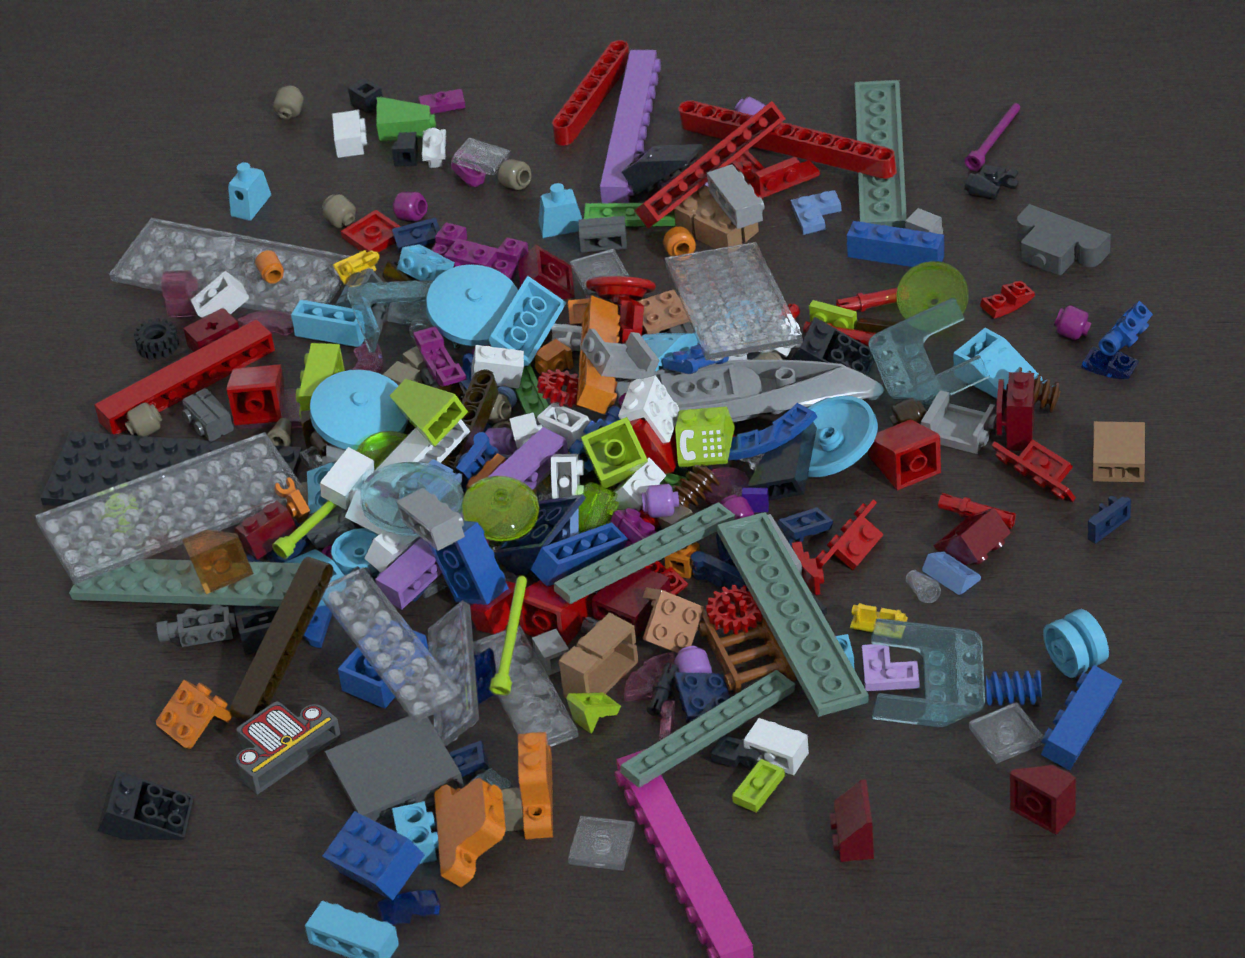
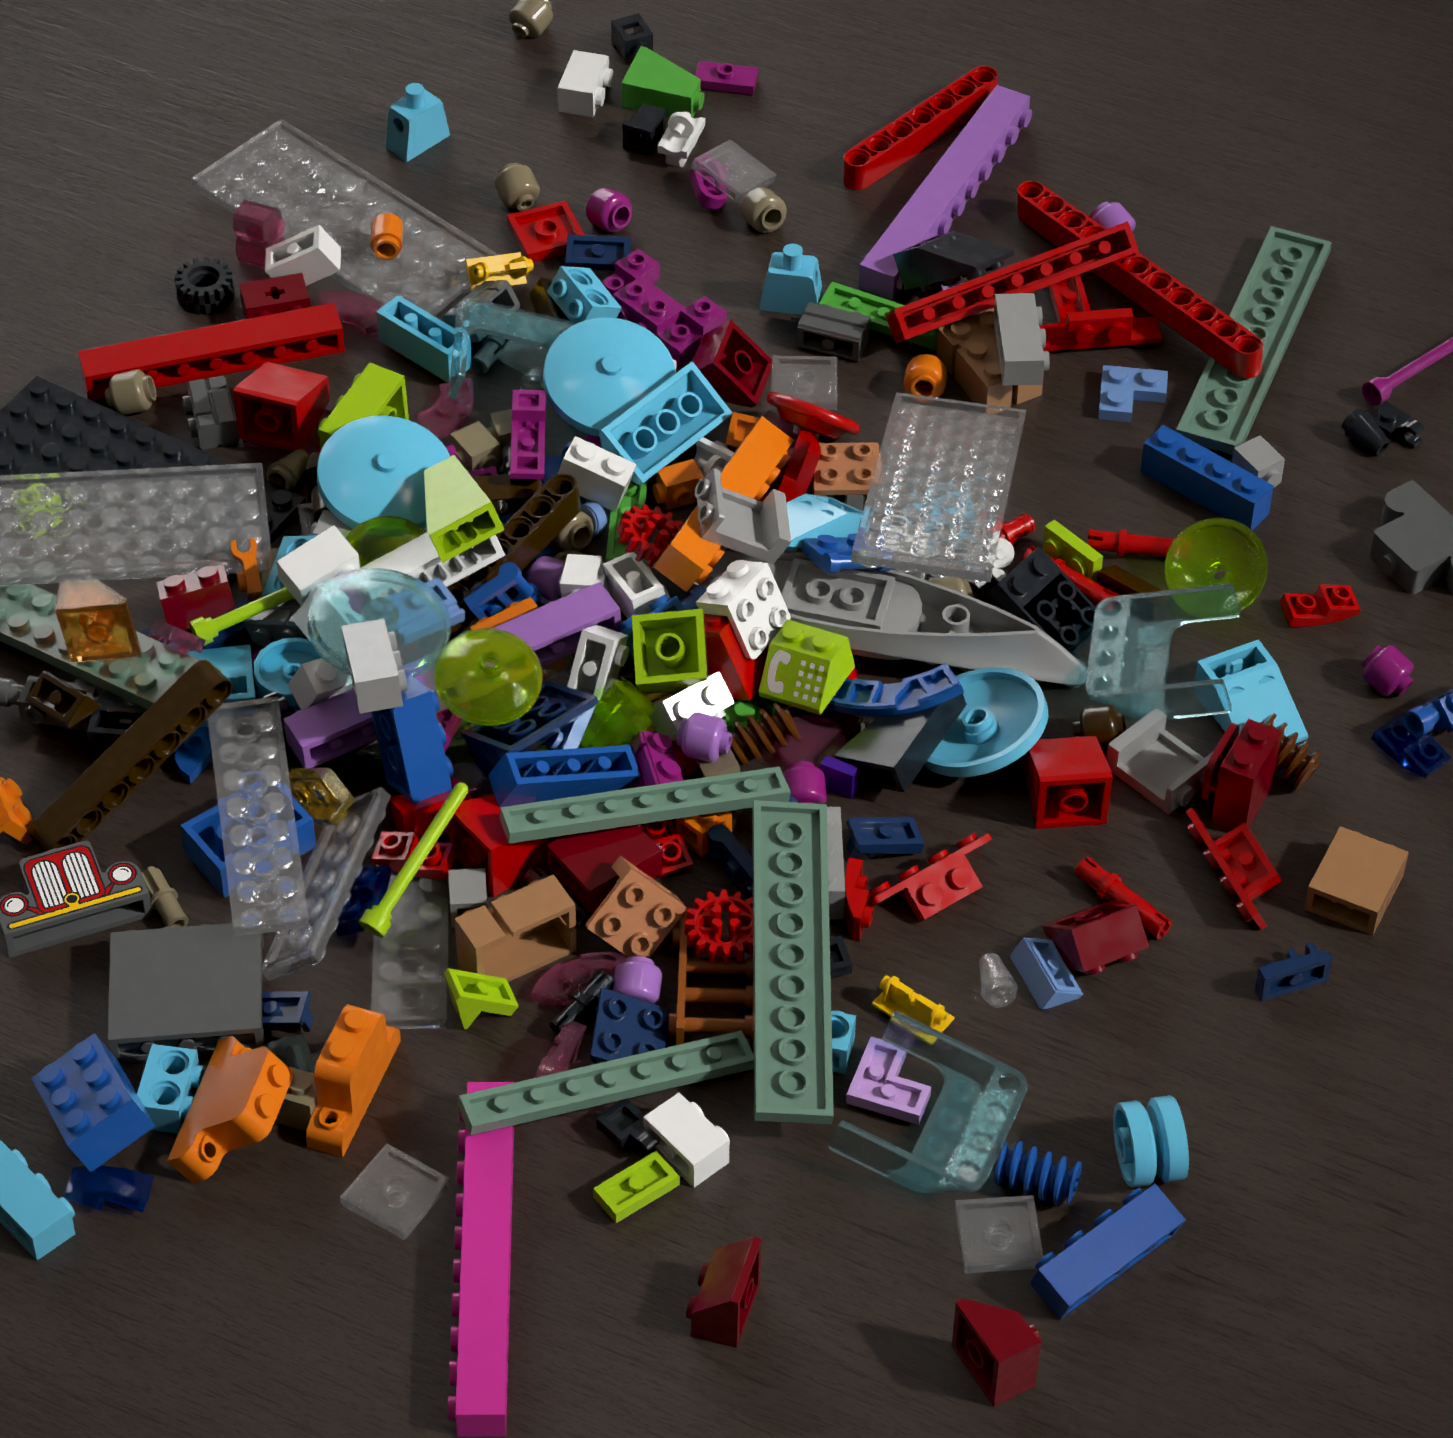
camera: 15 degrees right, 5 degrees up
(211, 619) = (61, 700): none -> dark brown slope
(271, 553) = (176, 637): none -> clear pink plate
(347, 722) = (164, 898): none -> dark tan axle
(424, 618) = (322, 793): none -> clear yellow bracket
(493, 637) = (396, 847): none -> red slope

